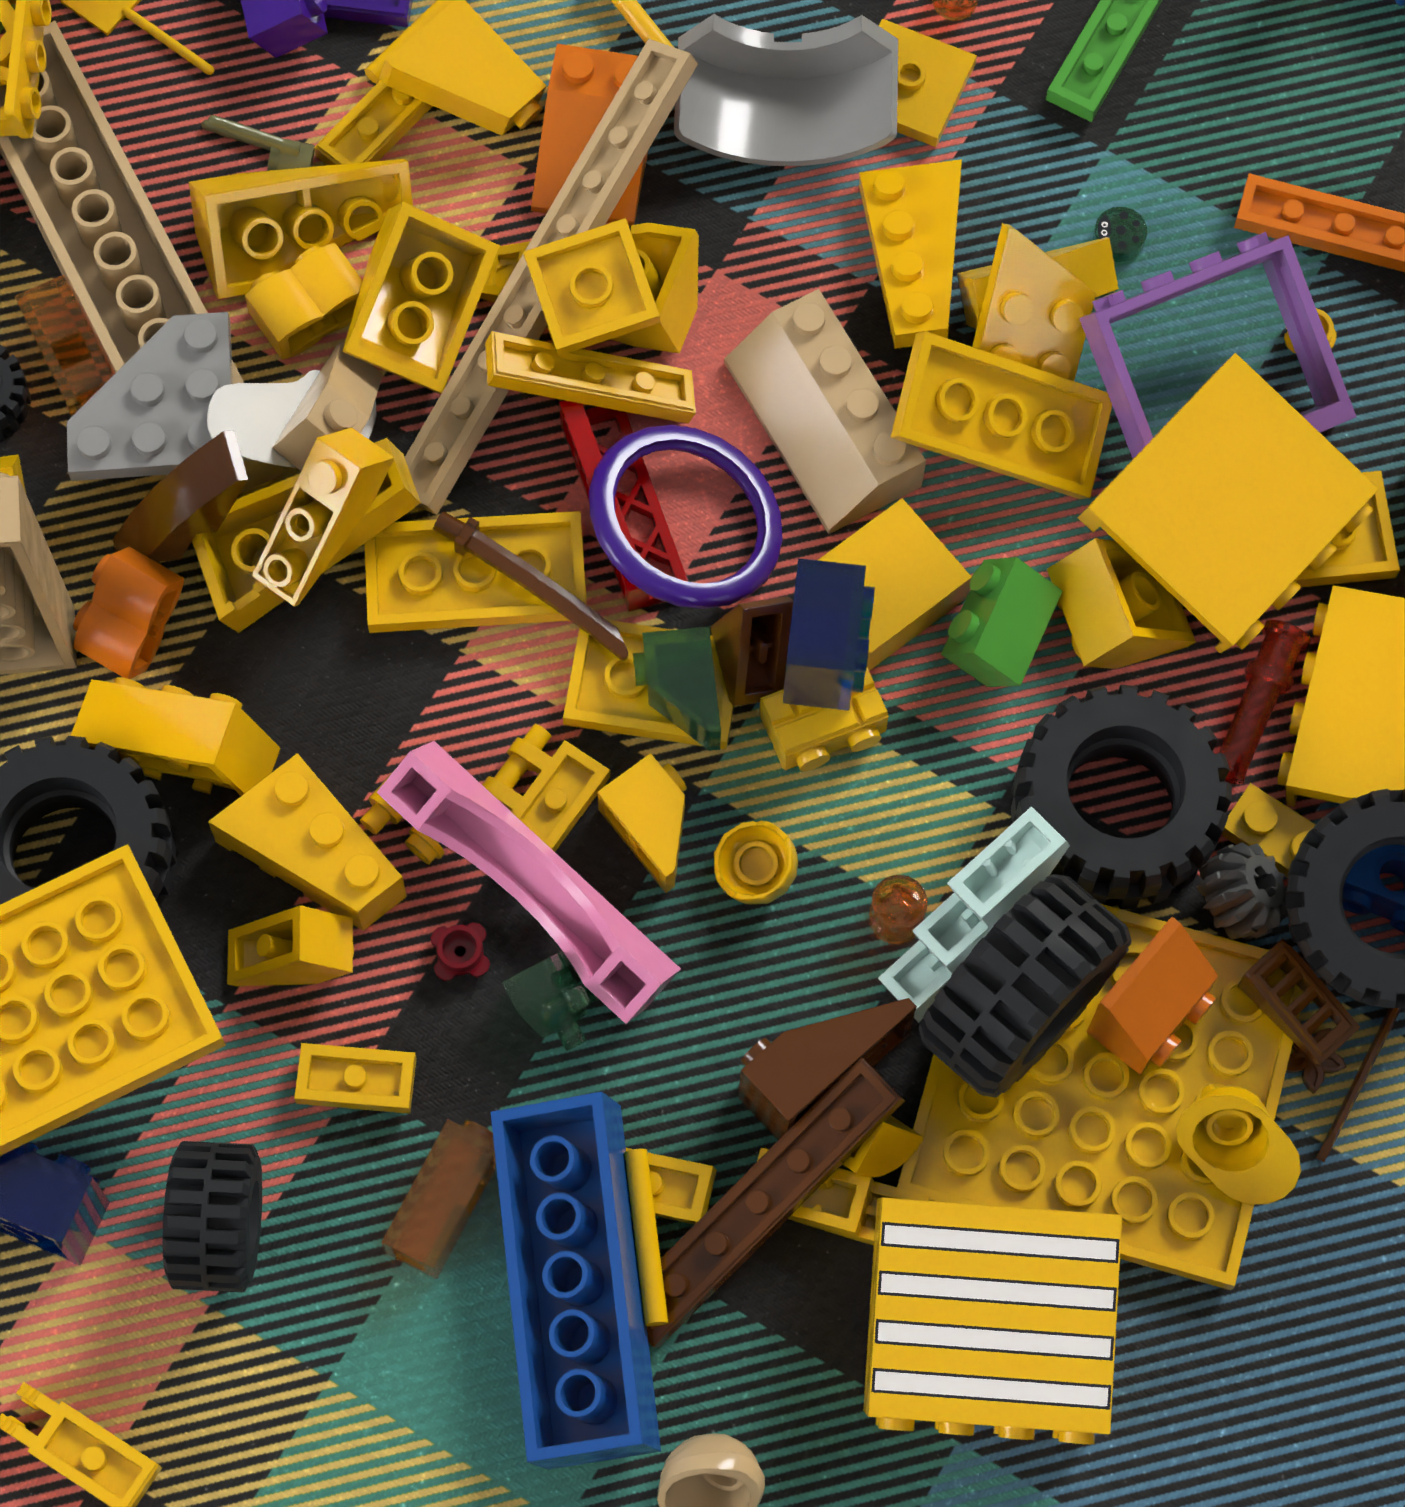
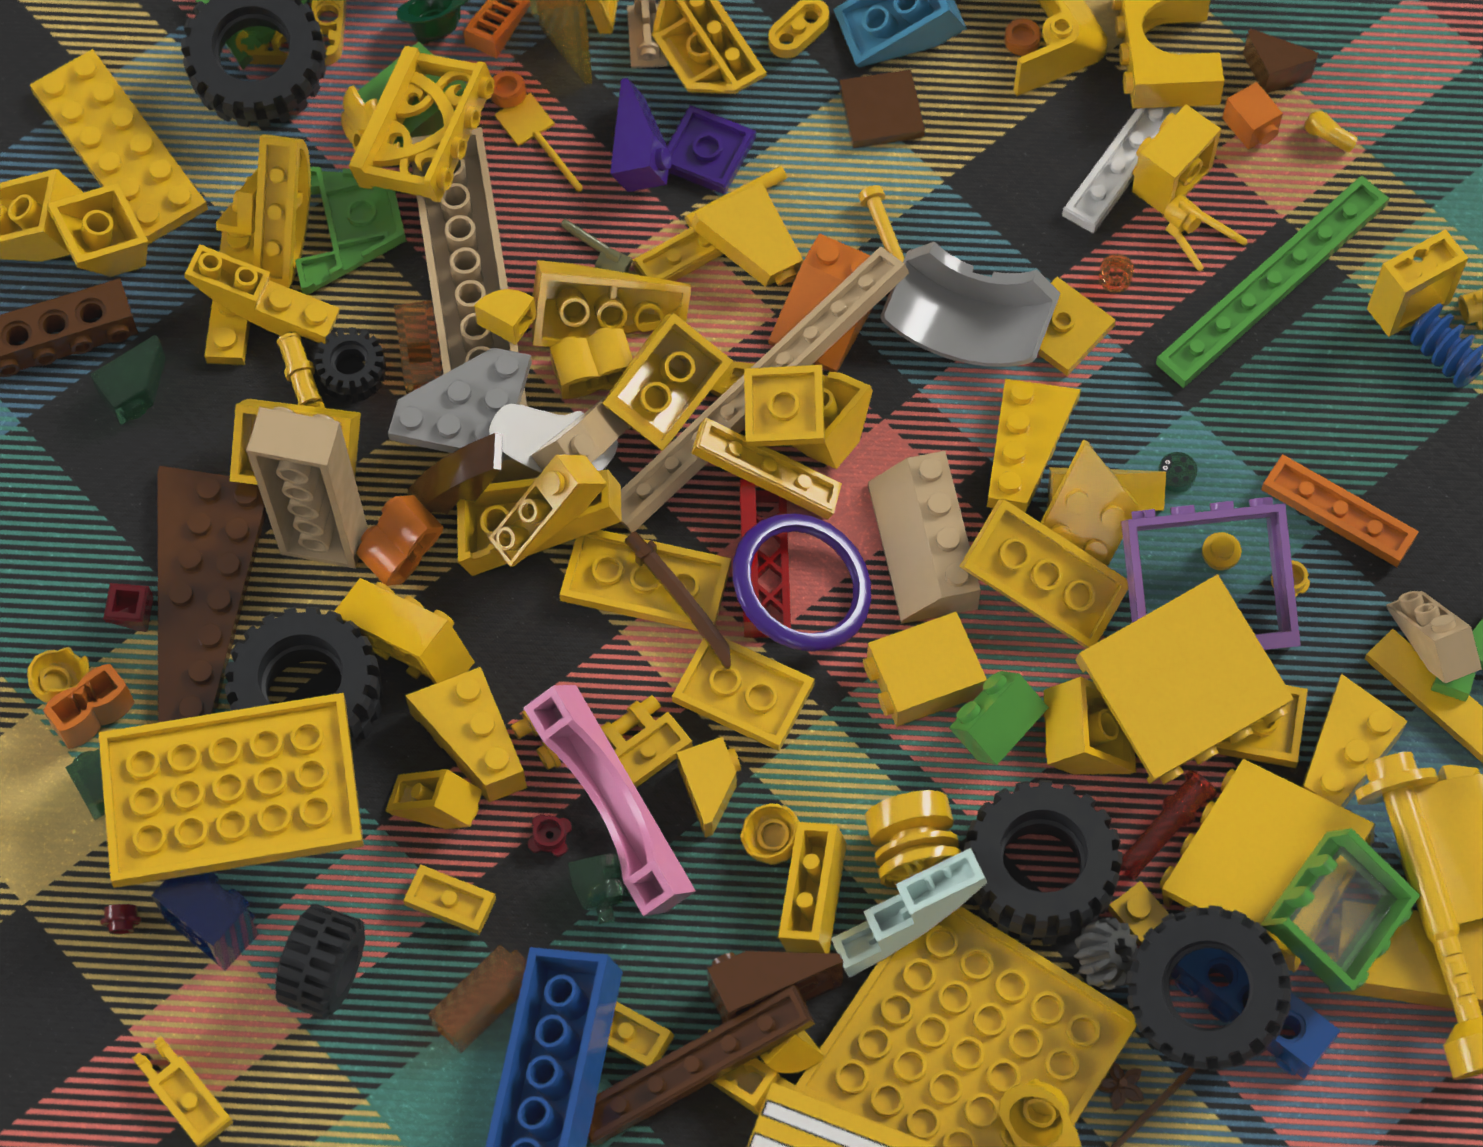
camera: 20 degrees right, 5 degrees down
(176, 264) = (506, 313): none -> yellow brick
(646, 1237) = (609, 1066): yellow bar -> none
(681, 681) = (759, 693): clear green slope -> none
(753, 648) = (817, 686): reddish brown slope -> none
(809, 734) = (853, 747): yellow brick -> none
(828, 634) = (865, 688): clear blue brick -> none
(835, 921) = (812, 888): none -> yellow brick
(898, 897) = (861, 886): clear orange wheel -> none
(943, 810) = (911, 834): none -> yellow wheel
(1024, 985) = (920, 967): black tyre -> none
(1155, 999) = (1015, 1007): orange slope -> none
(1210, 322) = (1221, 551): none -> yellow plate
(1313, 989) = (1133, 1036): reddish brown slope -> none

